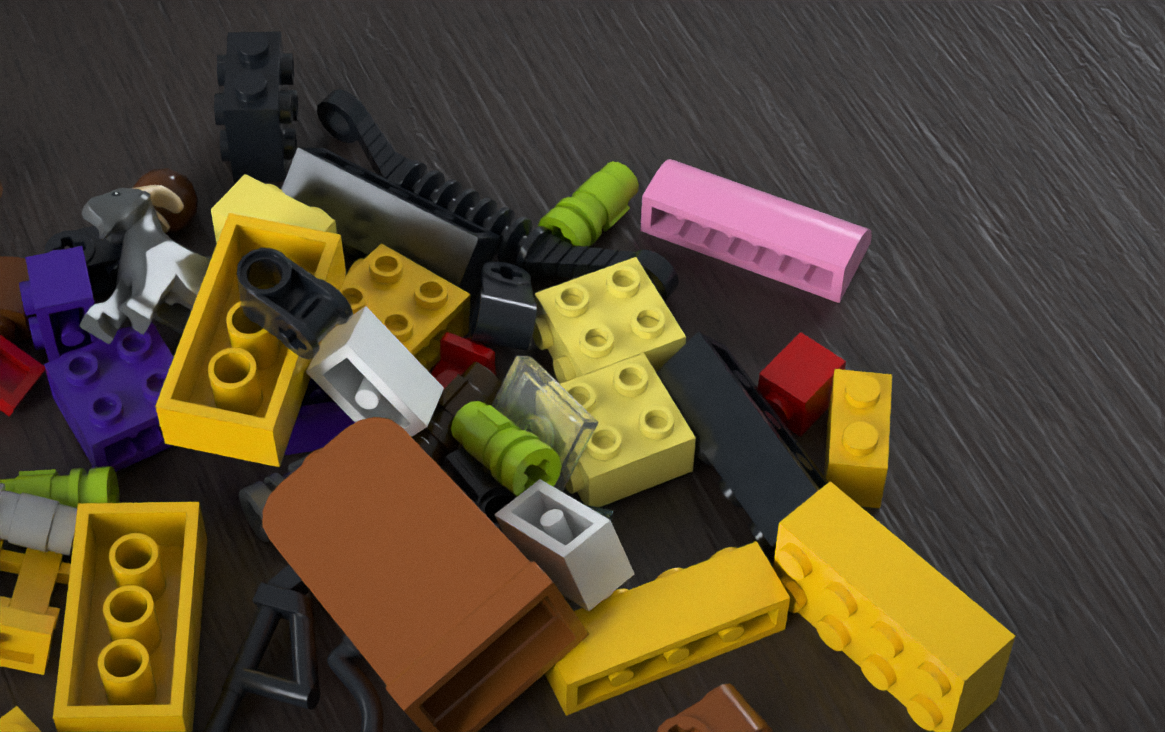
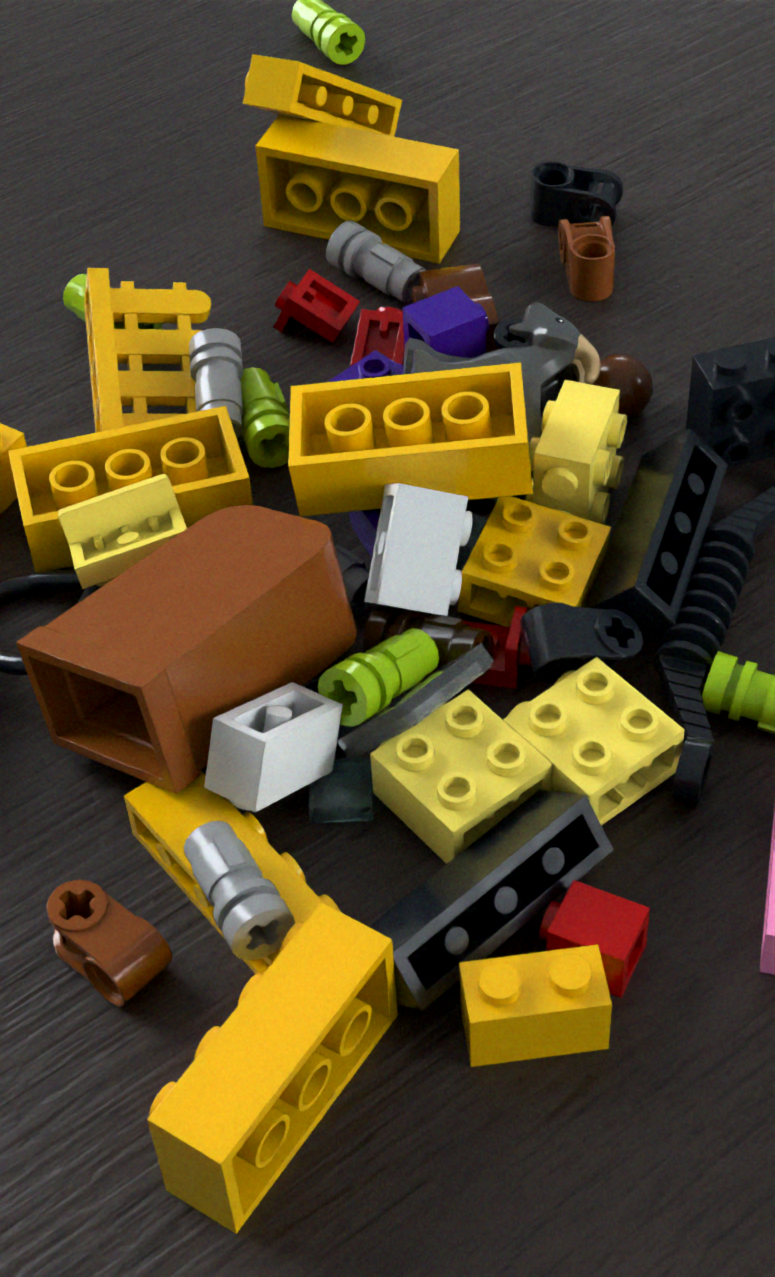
camera: 80 degrees right, 5 degrees down
(237, 623) = (120, 528): none -> light yellow bracket
(297, 308) = (411, 416): black piece -> none
(724, 597) = (243, 901): none -> light grey axle

